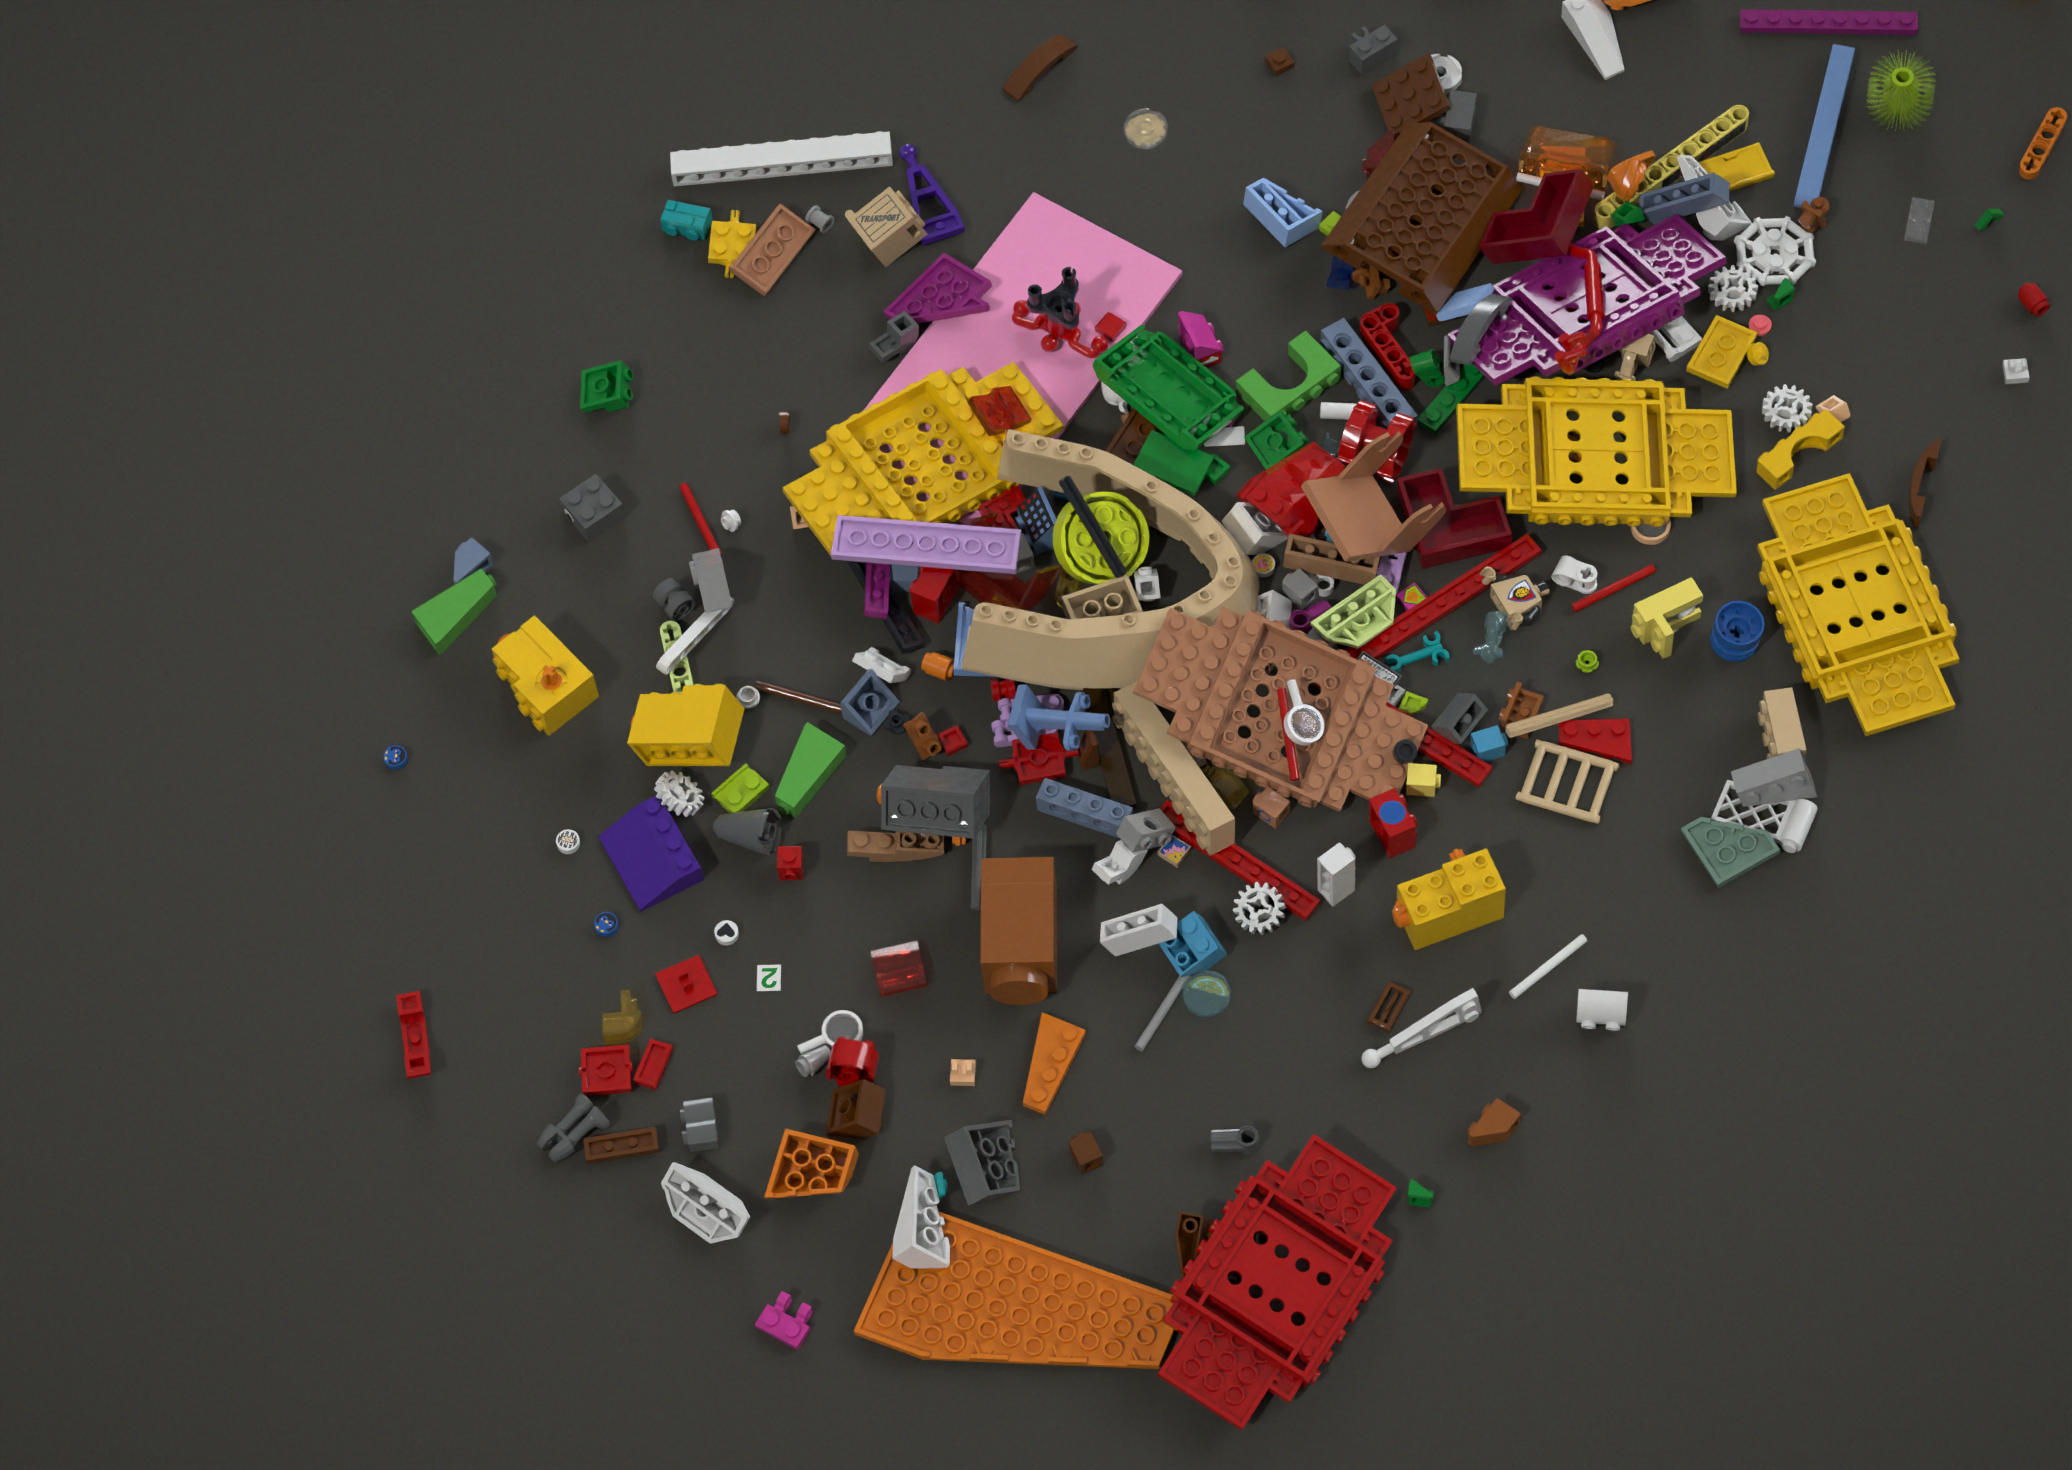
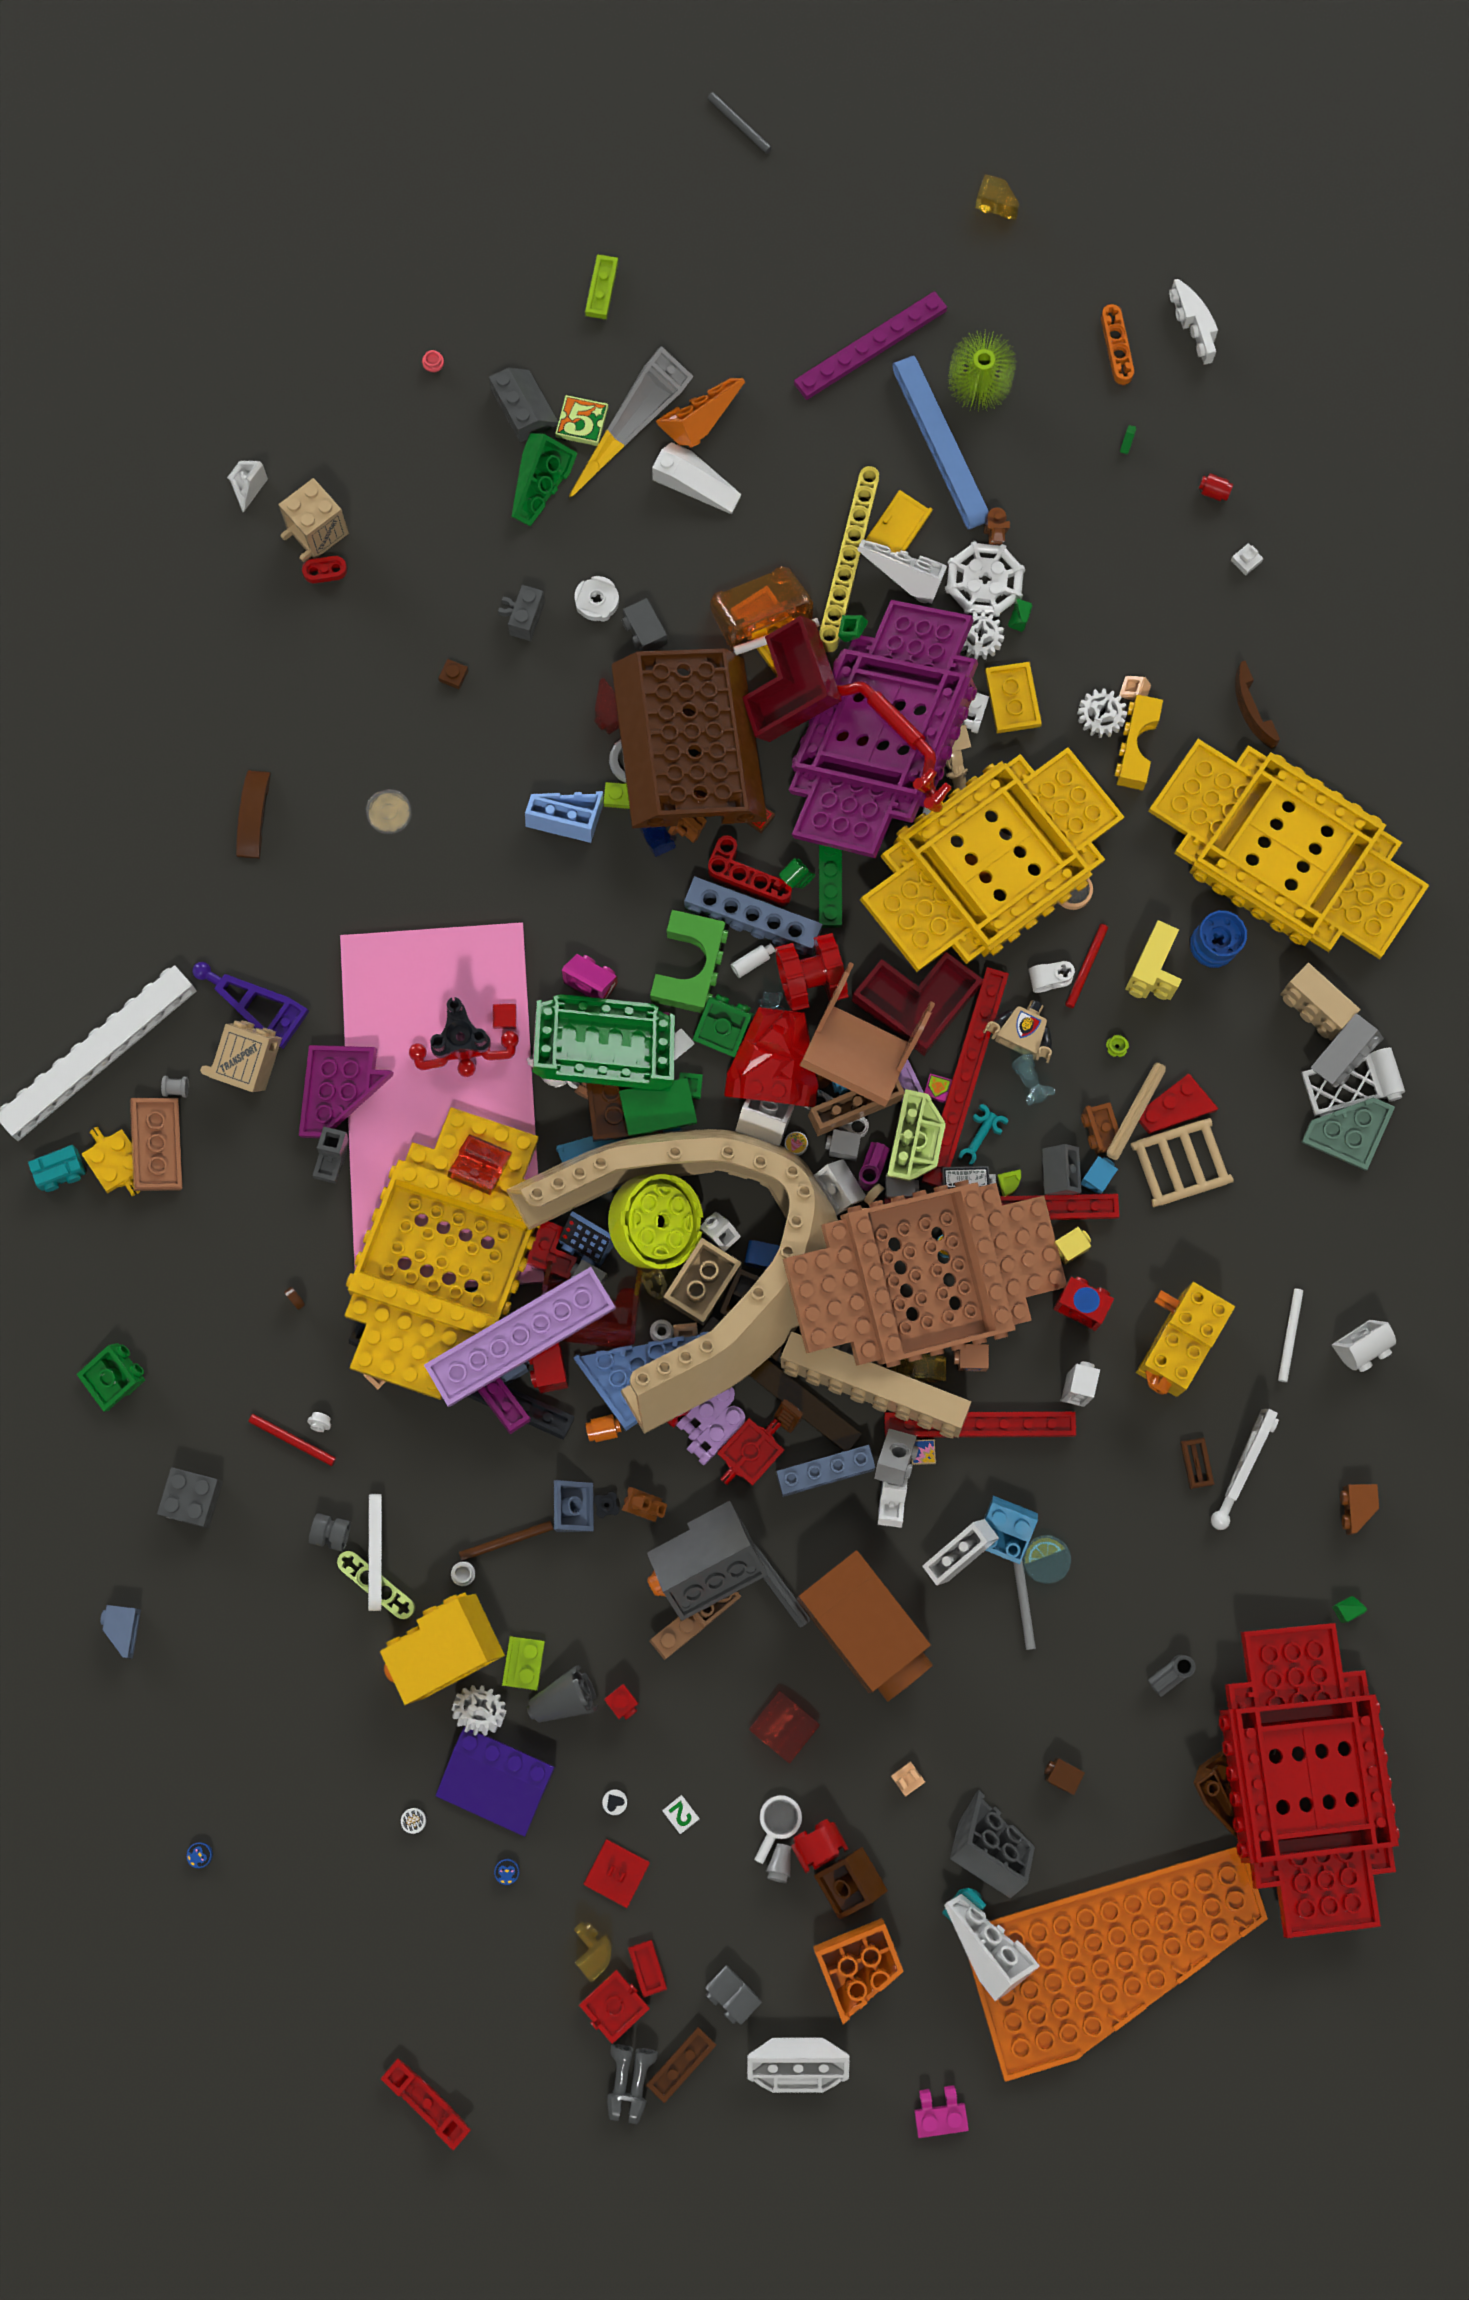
camera: 45 degrees left, 15 degrees up
(454, 609) = (142, 1682): bright green slope -> none
(543, 675) = (272, 1687): yellow piece -> none
(710, 575) = (350, 1494): light grey wedge -> none
(808, 769) = (568, 1603): bright green slope -> none
(881, 666) = (556, 1466): white plate -> none
(952, 740) = (665, 1486): red tile -> none
(1030, 716) = (725, 1428): medium blue piece -> none
(1052, 1056) = (967, 1705): orange wing -> none
(1092, 526) = (650, 1221): black axle -> none
(1256, 919) = (1025, 1457): white gear -> none
(1289, 744) = (953, 1293): red bar -> none
(1303, 722) = (959, 1274): piece -> none
(1404, 751) = (1046, 1234): black tile -> none
(1411, 95) = (592, 635): reddish brown plate -> none
(1451, 369) = (810, 856): light grey slope -> none
(1463, 302) = (783, 794): light blue tile -> none
(1475, 325) = (818, 813): dark grey slope -> none
(1629, 174) = (835, 592): orange hair -> none
(1684, 198) = (892, 582): sand blue brick -> none
(1757, 354) = (1042, 680): yellow tile -> none
(1760, 324) = (1023, 652): coral plate -> none
(1919, 220) = (1074, 476): clear slope -> none

